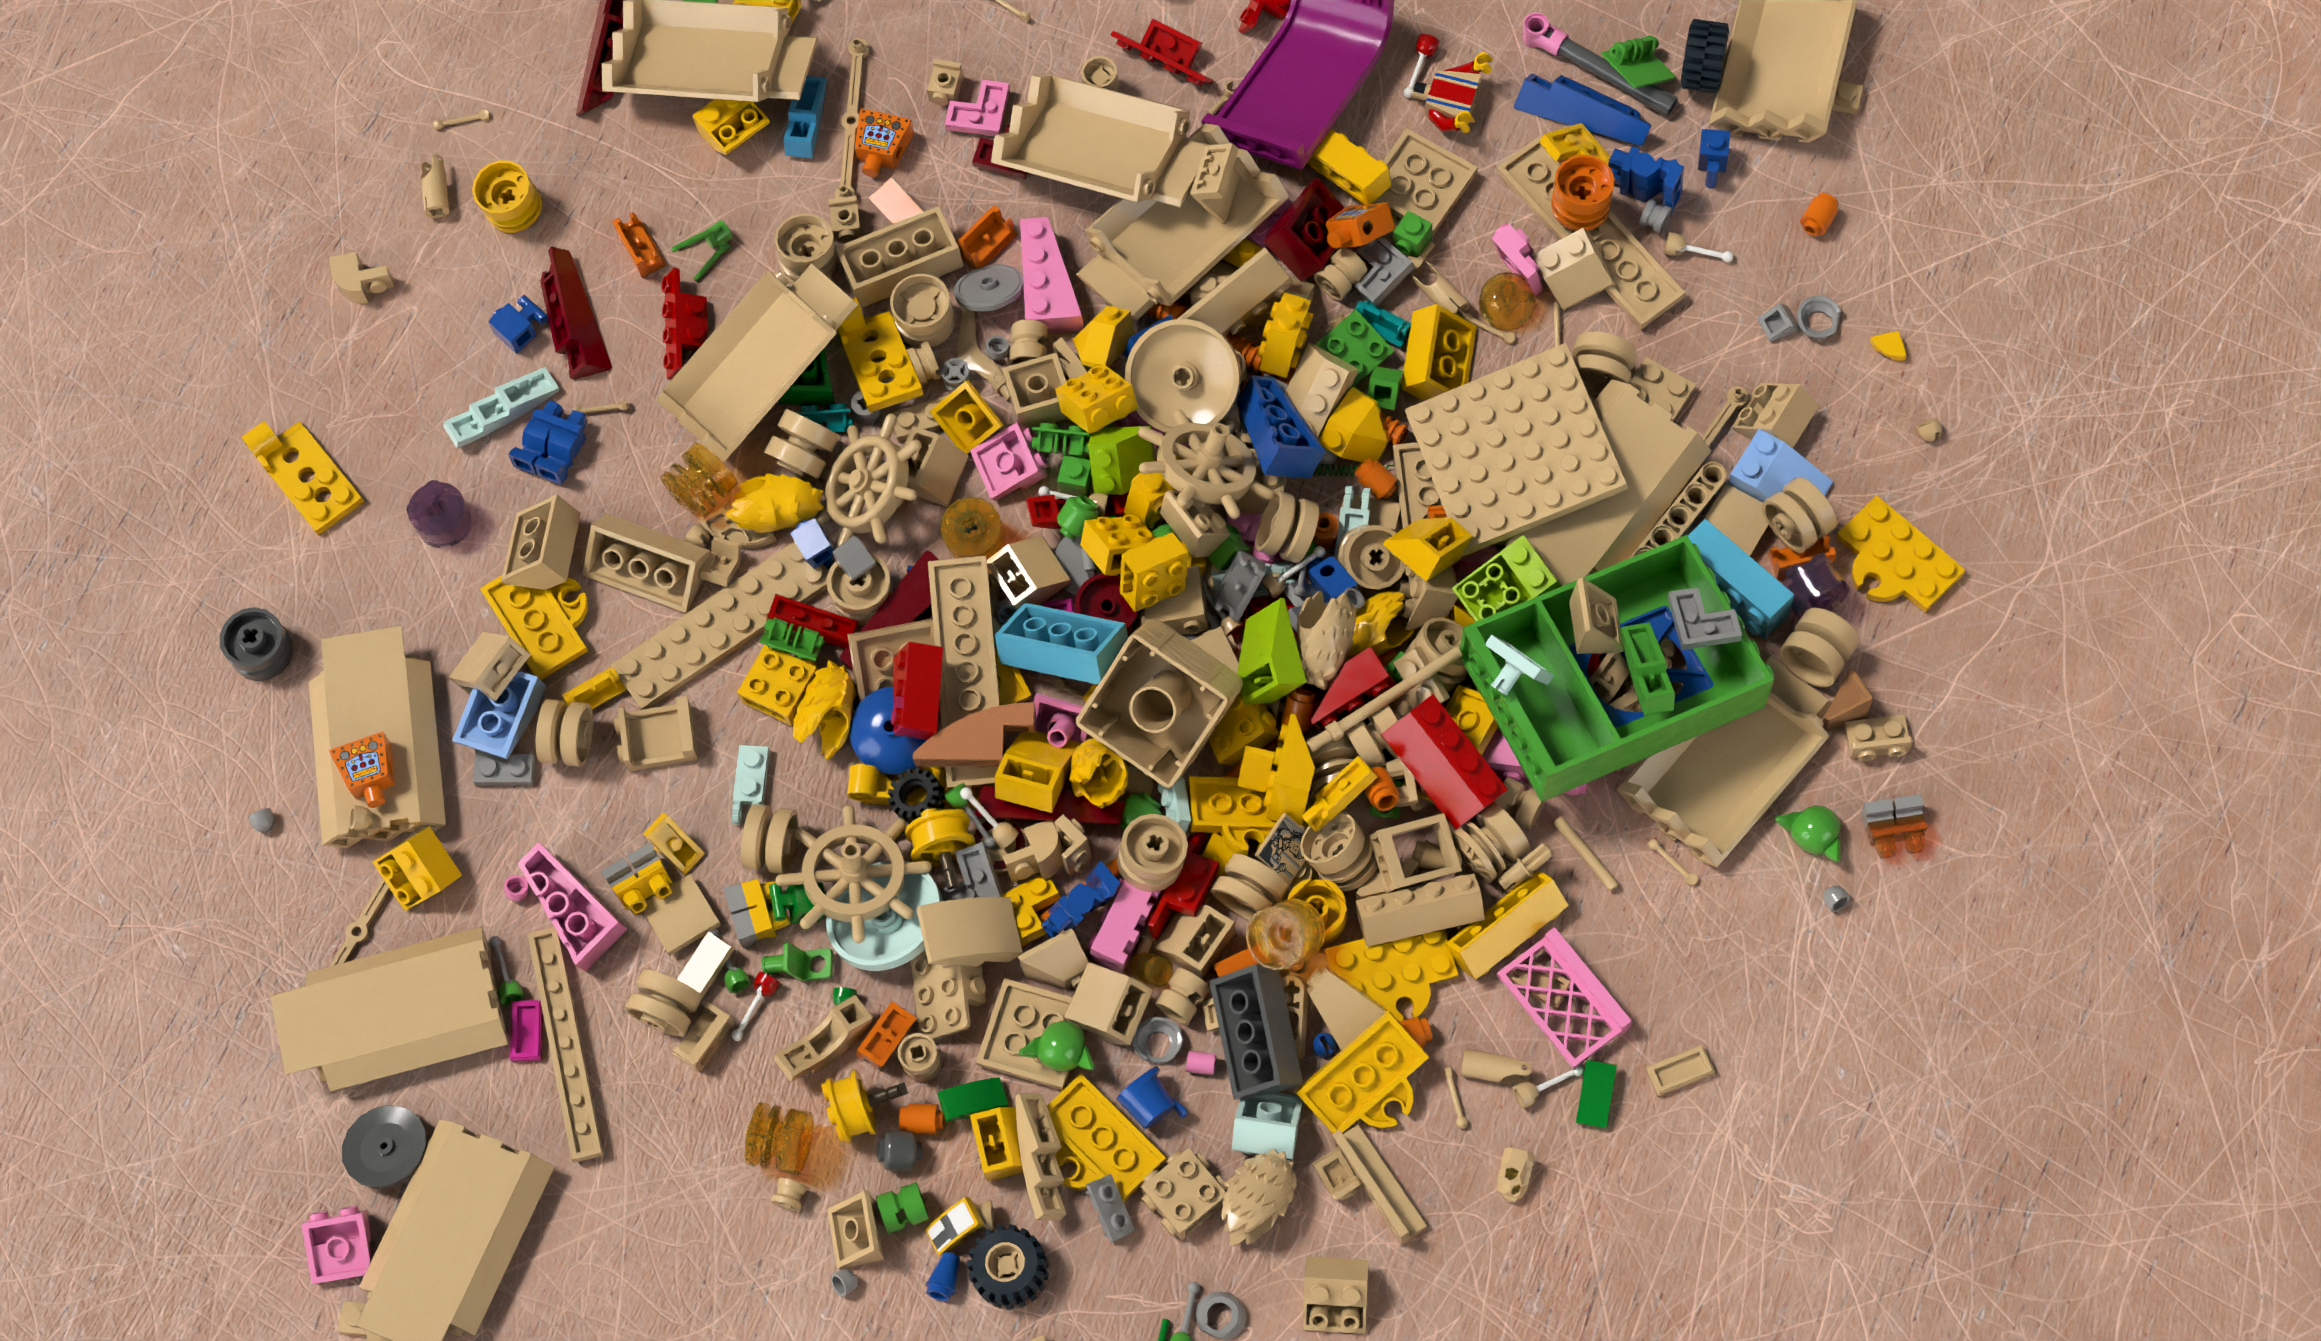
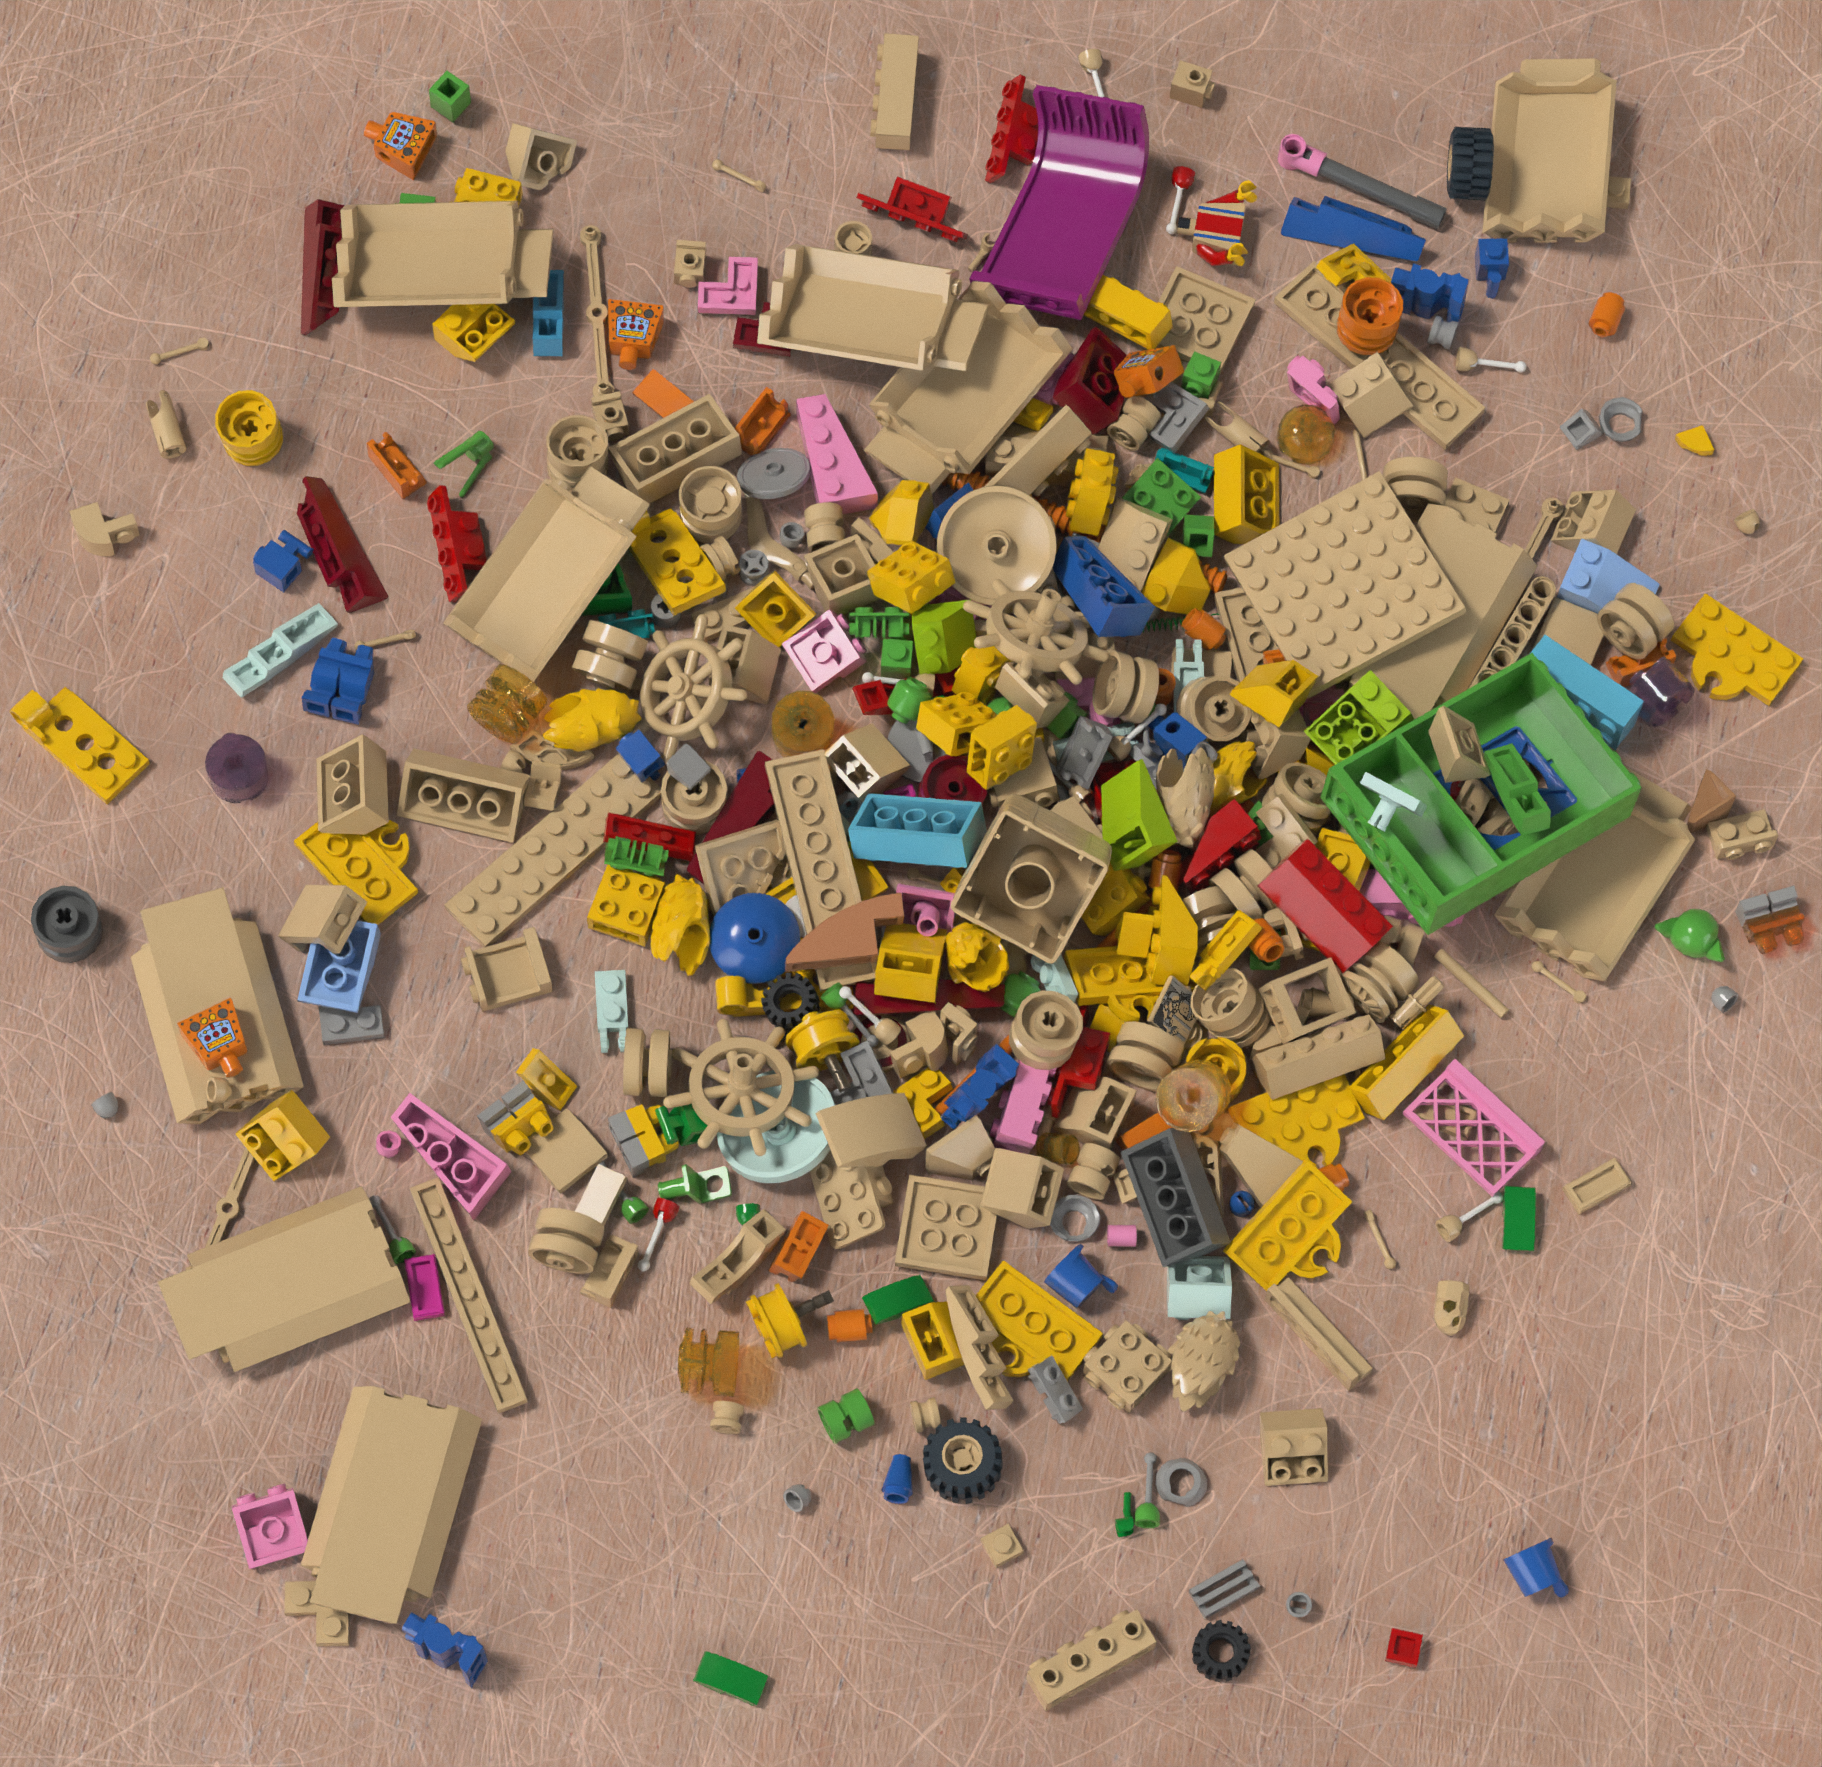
camera: 20 degrees left, 0 degrees up
(384, 1146) = (299, 1421): dark grey piece -> none
(564, 732) = (417, 978): tan wheel -> none
(597, 689) = (432, 934): yellow hinge -> none
(855, 1231) = (801, 1445): tan slope -> none
(898, 1150) = (831, 1360): dark grey head -> none
(916, 690) = (778, 893): red wedge -> none
(919, 1057) = (837, 1264): tan wheel -> none
(954, 1225) = (901, 1427): slope -> none
(1060, 1047) = (981, 1237): bright green piece -> none
(1216, 180) = (997, 337): tan bracket -> none
(1336, 730) = (1211, 886): tan bar -> none
(1336, 1175) = (1275, 1329): tan bracket -> none
(1494, 1067) = (1414, 1204): tan piece -> none
(1637, 62) = (1401, 176): bright green hinge -> none
(1699, 628) = (1562, 744): light grey plate -> none
(1819, 647) = (1673, 751): tan wheel -> none

